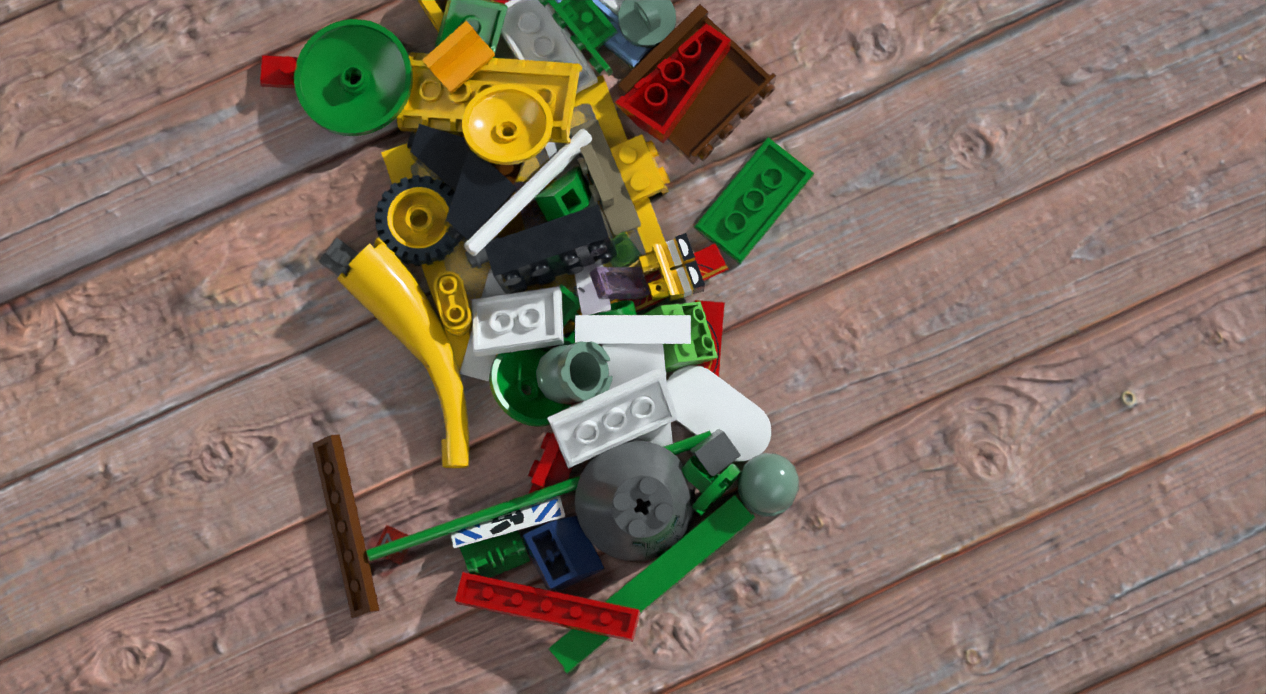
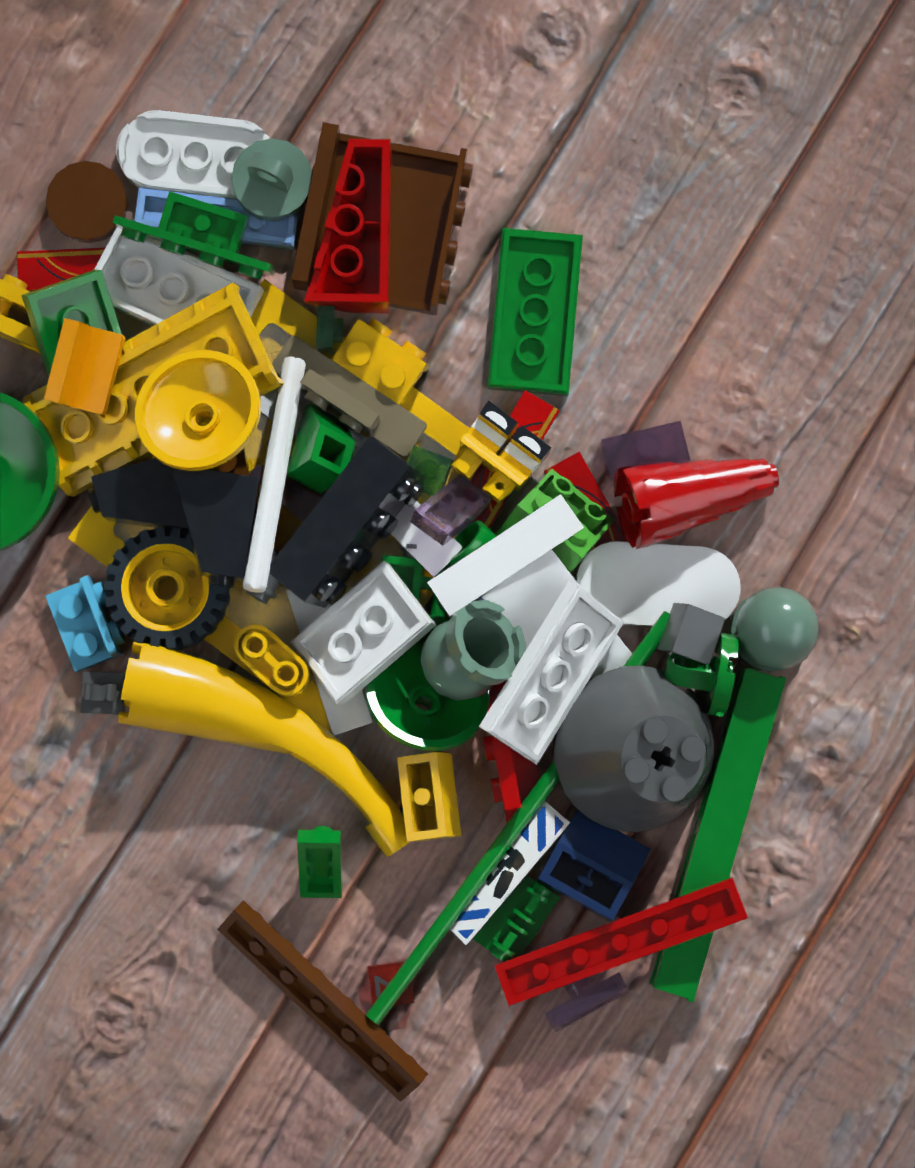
camera: 35 degrees left, 5 degrees up
(357, 210) = (85, 624): none -> medium azure bracket
(399, 442) = (320, 863): none -> green tile
(491, 446) = (429, 796): none -> yellow brick
(503, 631) = (586, 1000): none -> clear purple tile
(619, 129) = (329, 329): none -> clear green plate
(759, 365) = (674, 497): none -> red cone
(764, 327) = (645, 447): none -> clear purple tile

